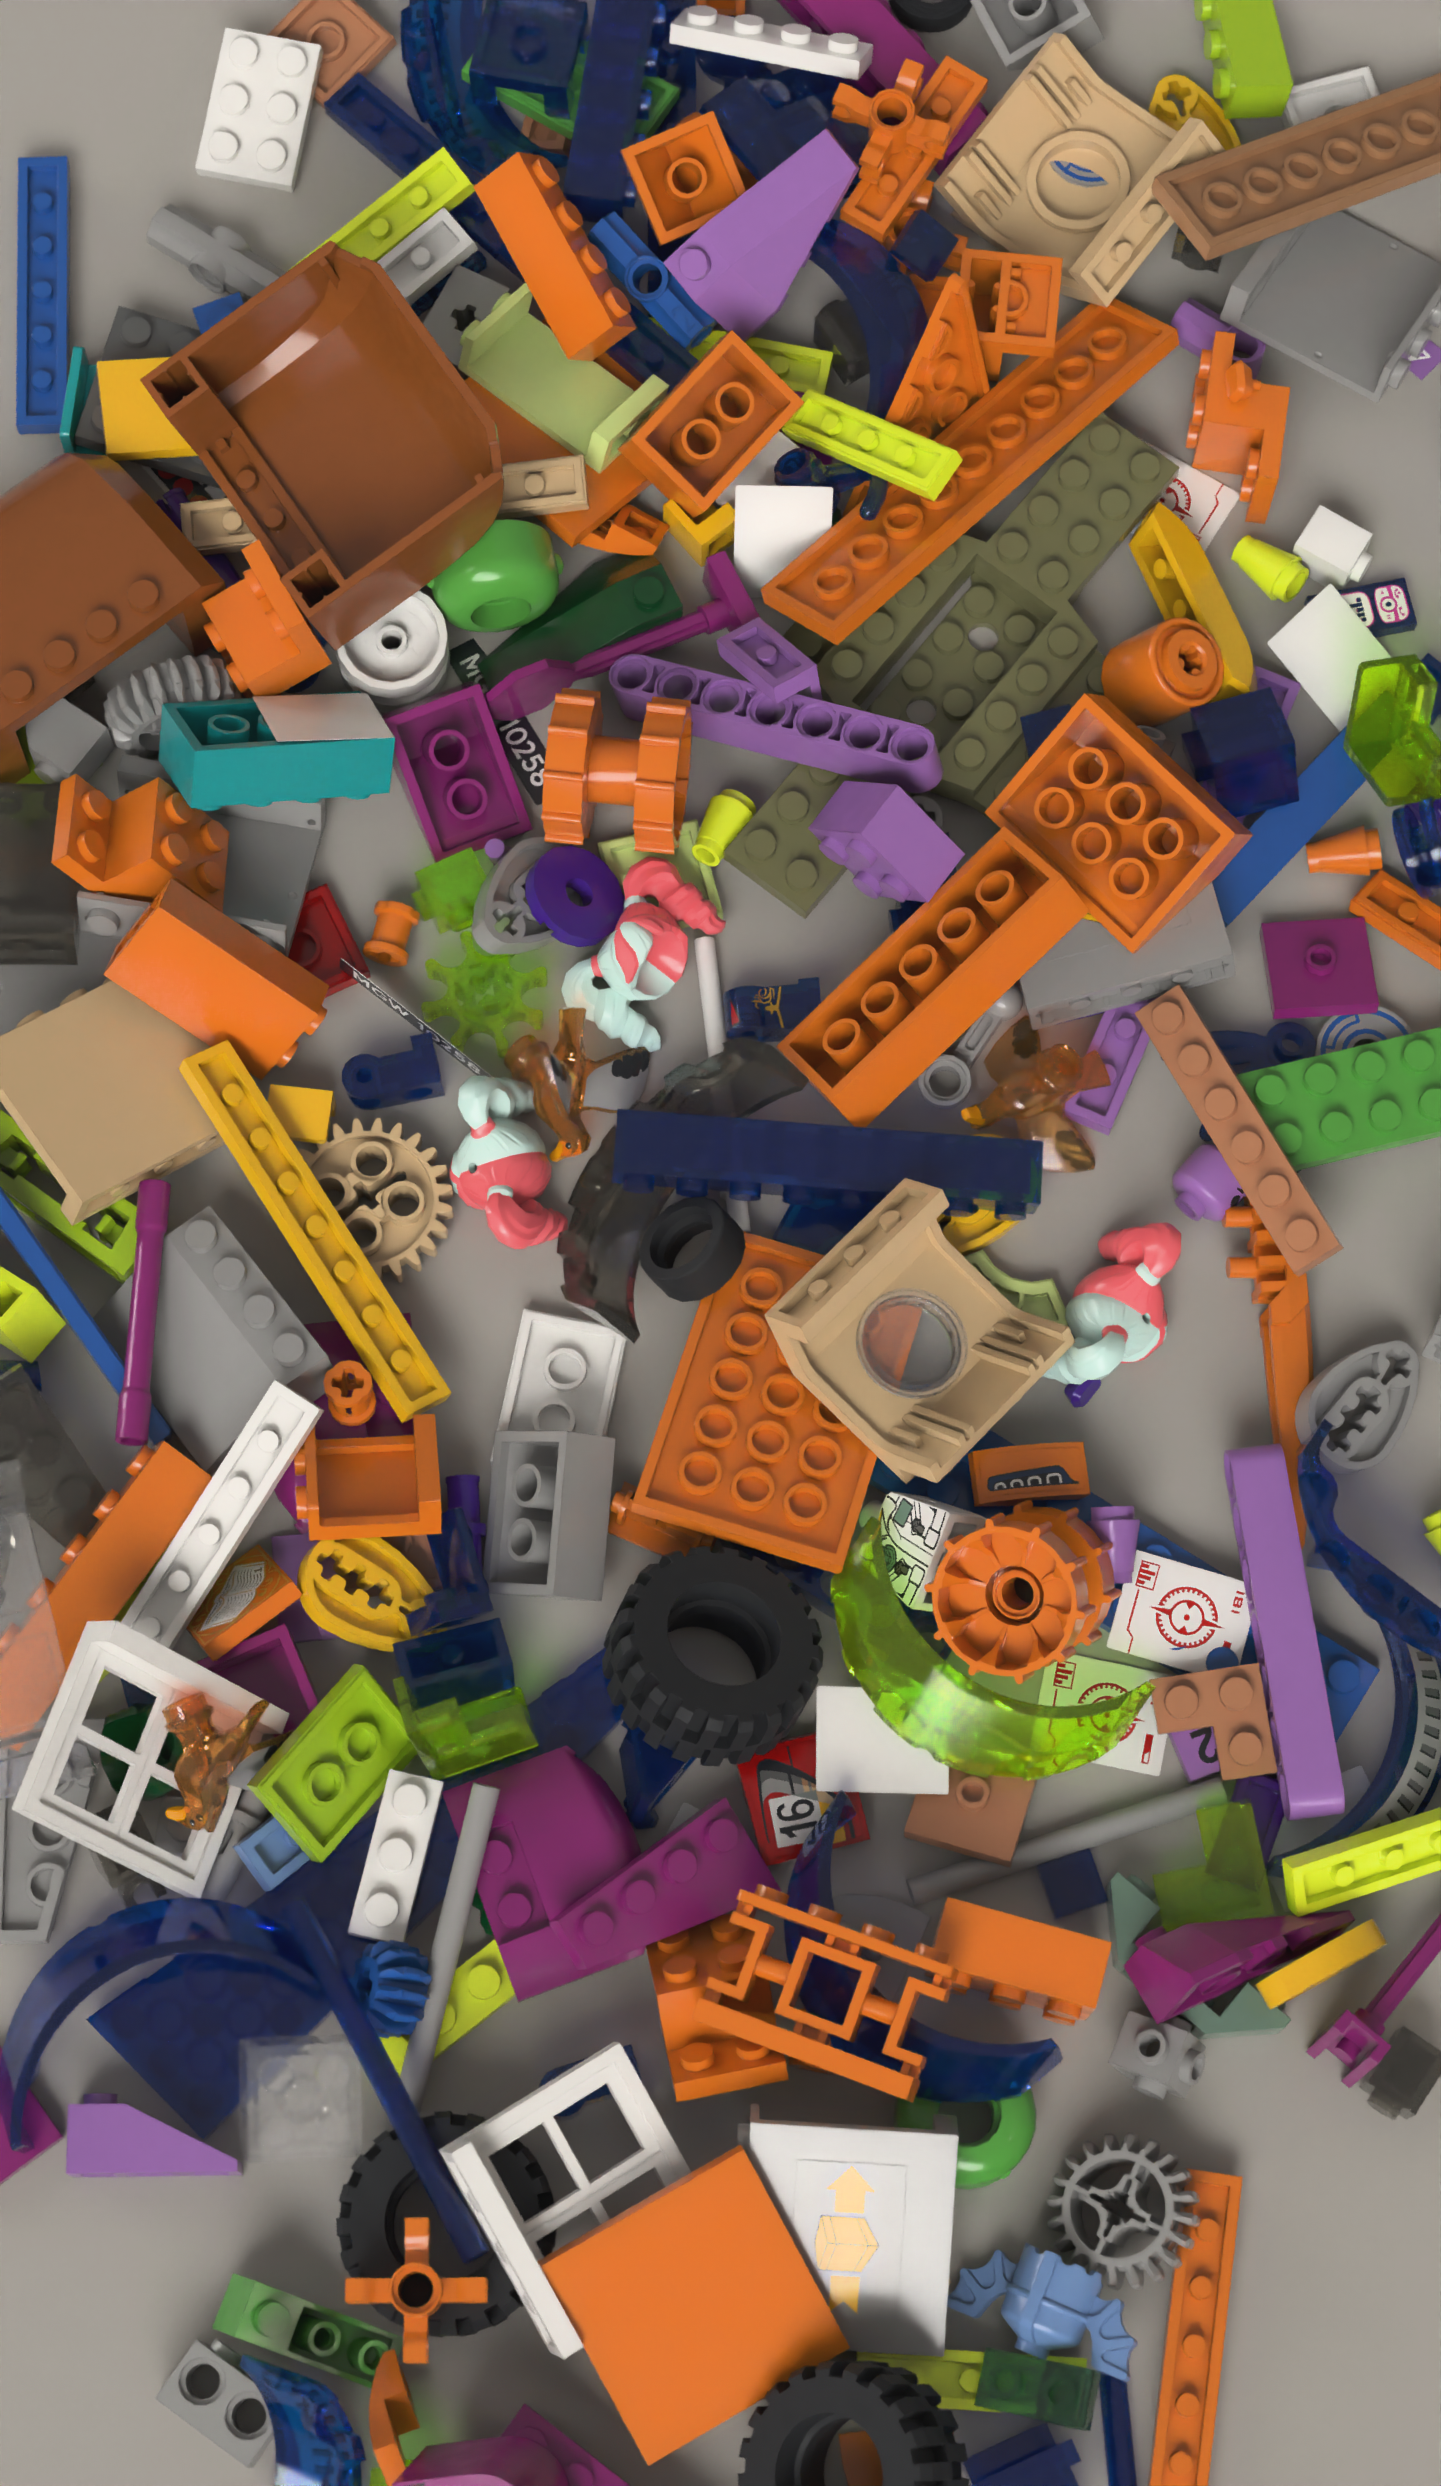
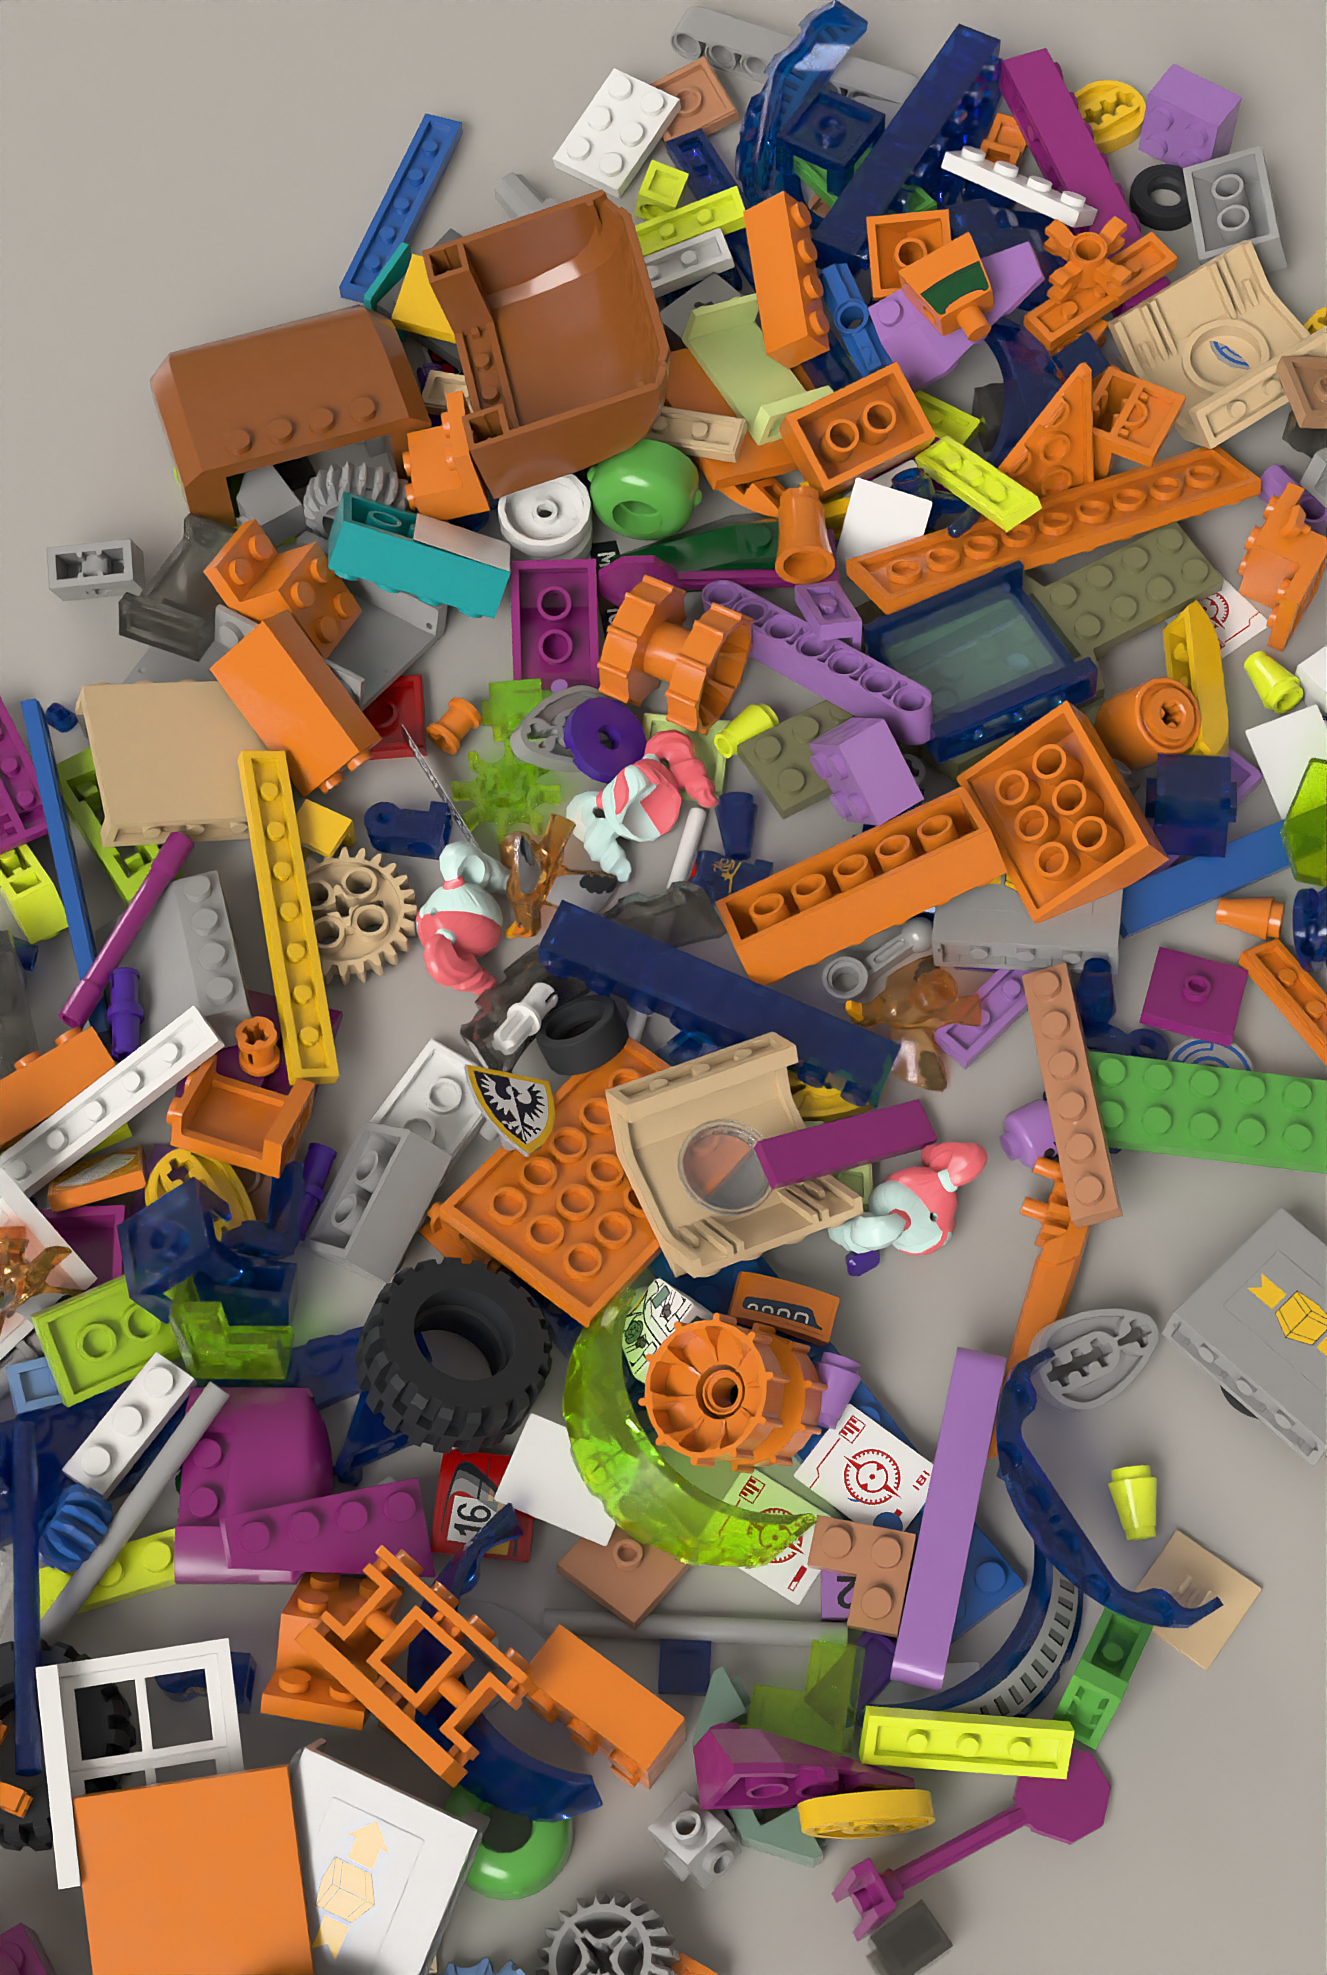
camera: 25 degrees right, 10 degrees down
(189, 1411) = (125, 1012): none -> dark purple pin
(350, 178) = (660, 191): none -> neon yellow brick
(369, 1651) = (173, 1242): none -> clear blue panel
(623, 1253) = (524, 1018): none -> white axle
(664, 1362) = (515, 1107): none -> shield
(700, 575) = (803, 540): none -> orange plant
(755, 941) = (737, 822): none -> clear blue cone
(762, 219) = (951, 288): none -> orange torso
(960, 661) = (982, 659): none -> panel
(1021, 1270) = (844, 1144): none -> magenta tile
(1220, 1005) = (1096, 993): none -> clear blue cone

